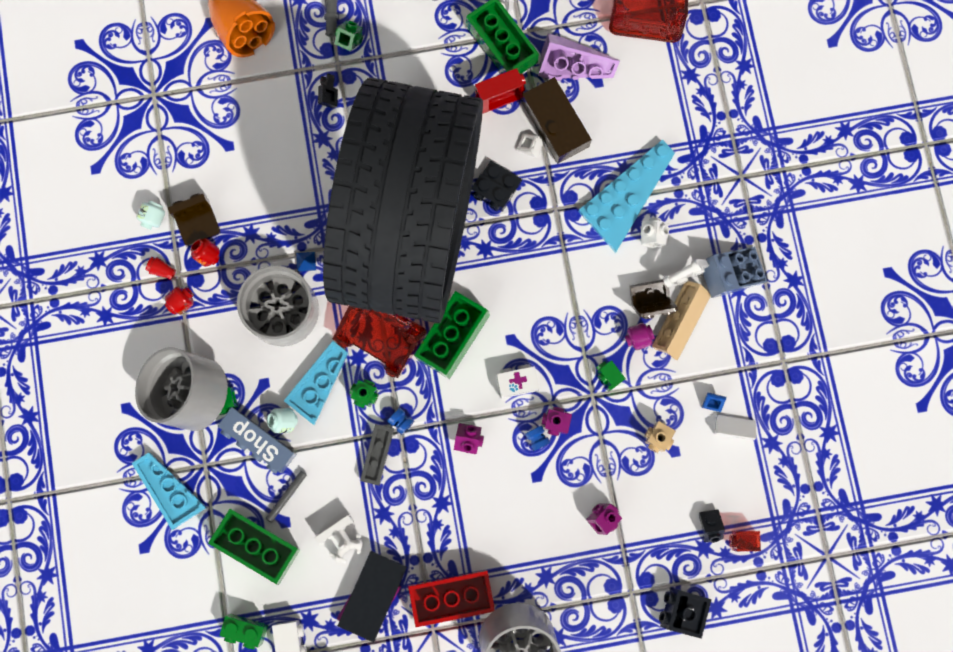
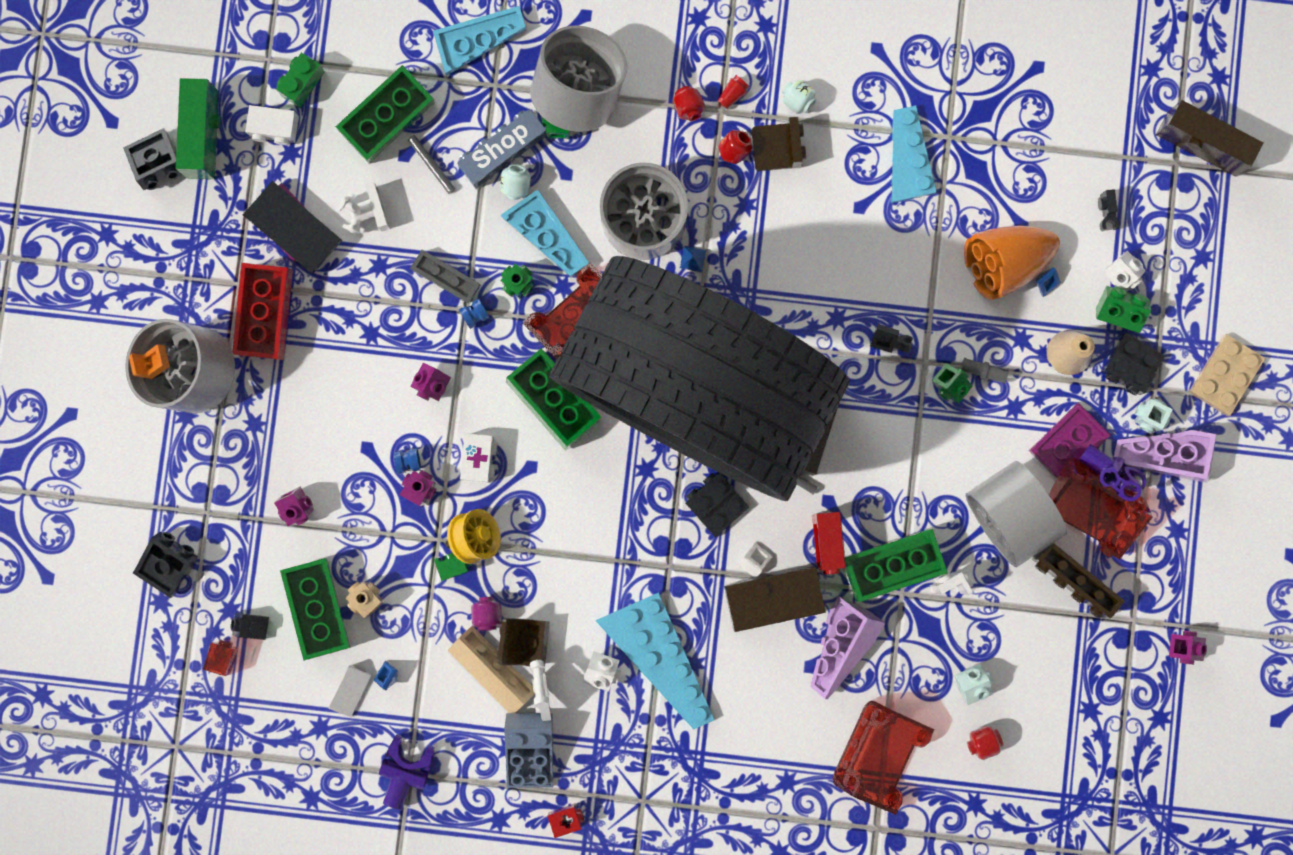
camera: 105 degrees right, 5 degrees up
(182, 116) = (910, 161): none -> medium azure wing
(582, 363) = (473, 536): none -> yellow wheel
(681, 474) = (315, 609): none -> green brick
(780, 233) = (561, 828): none -> red brick
(784, 363) = (403, 773): none -> dark purple connector

